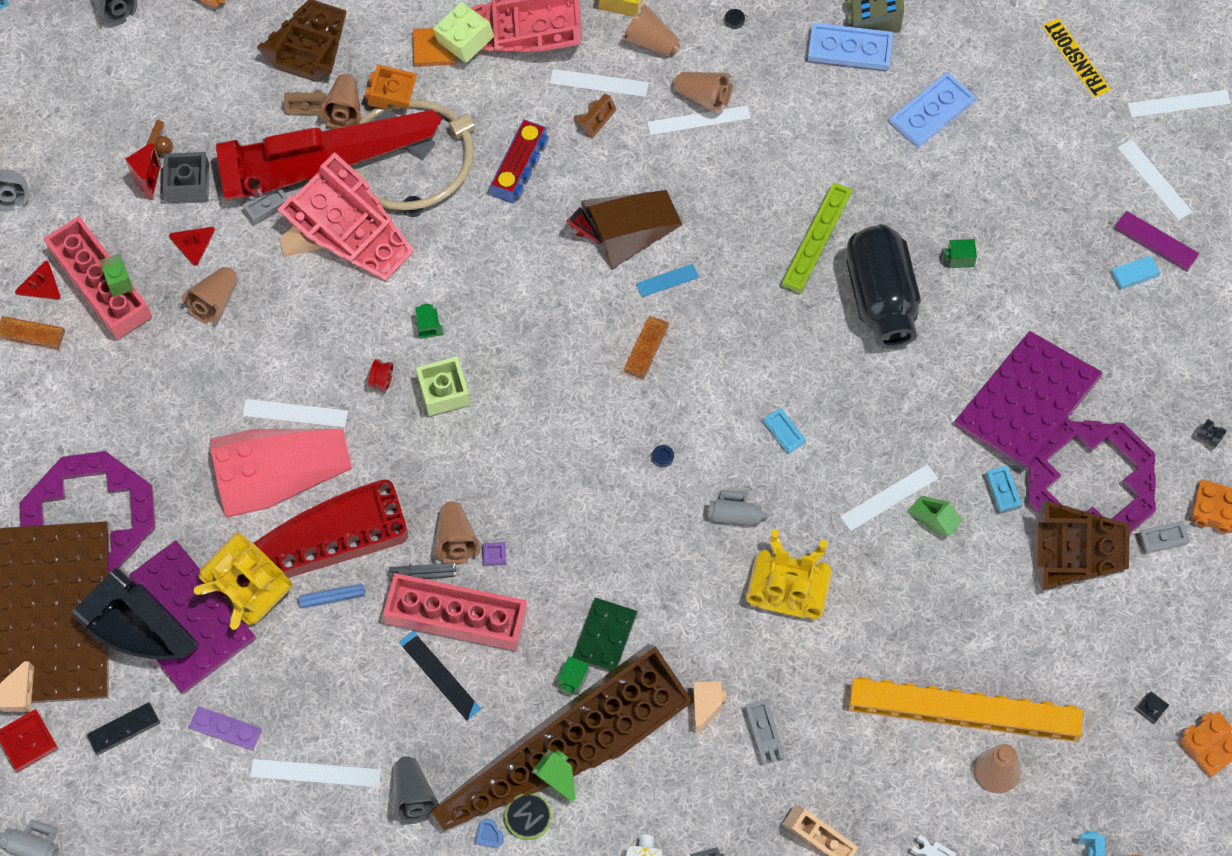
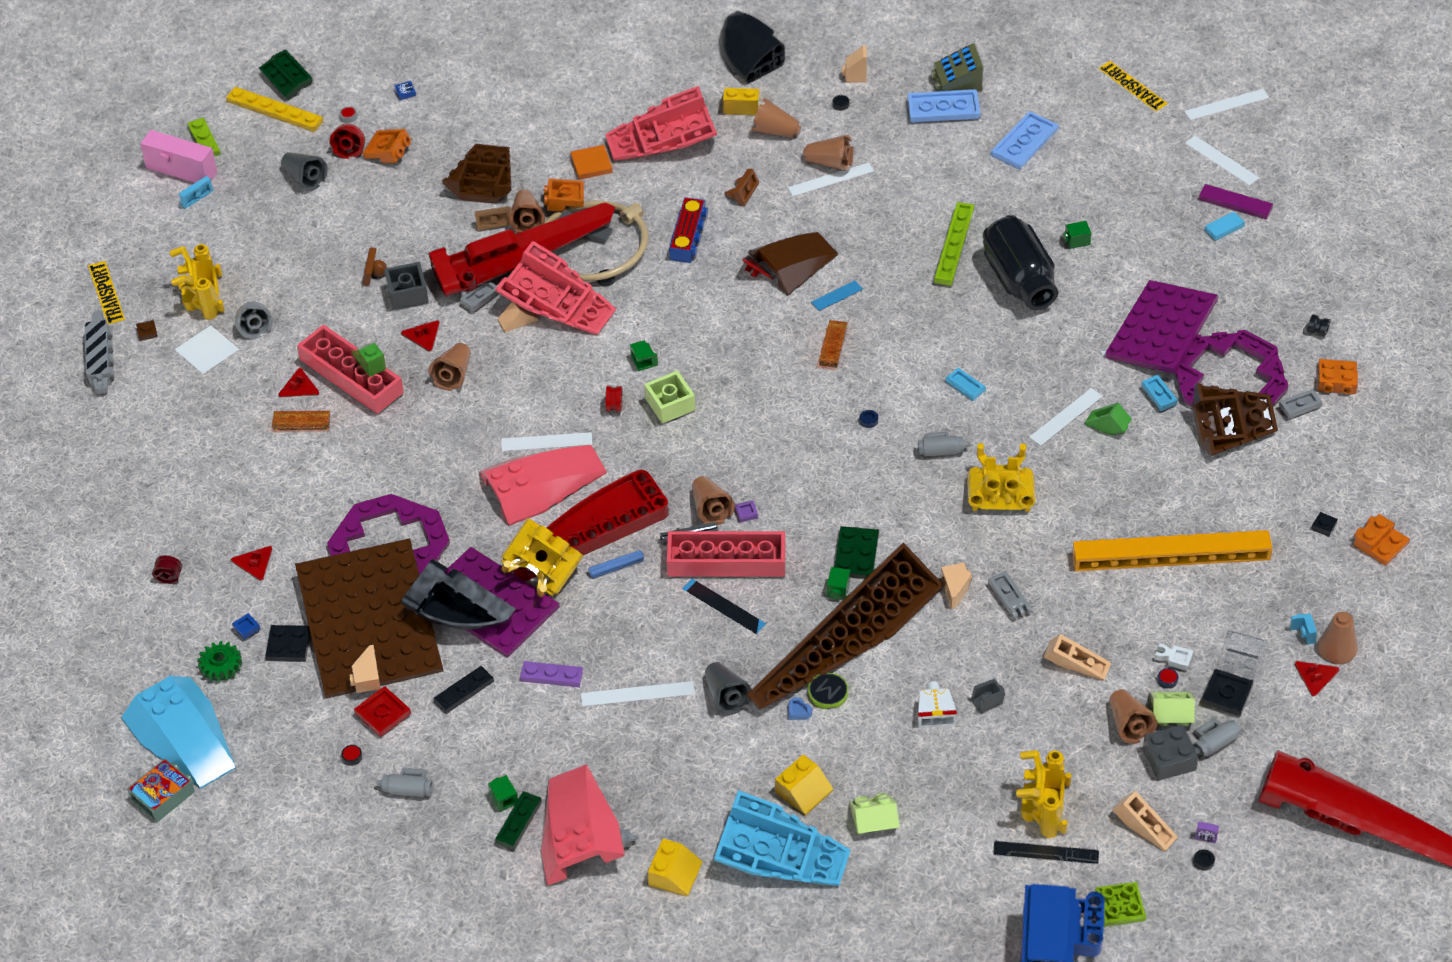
camera: 10 degrees left, 15 degrees down
(145, 169) = (368, 285): red slope -> none
(463, 32) = (616, 143): yellowish green brick -> none
(556, 773) = (845, 651): bright green slope -> none
(599, 82) = (738, 166): white sticker -> none
(998, 769) = (1211, 583): nougat cone -> none

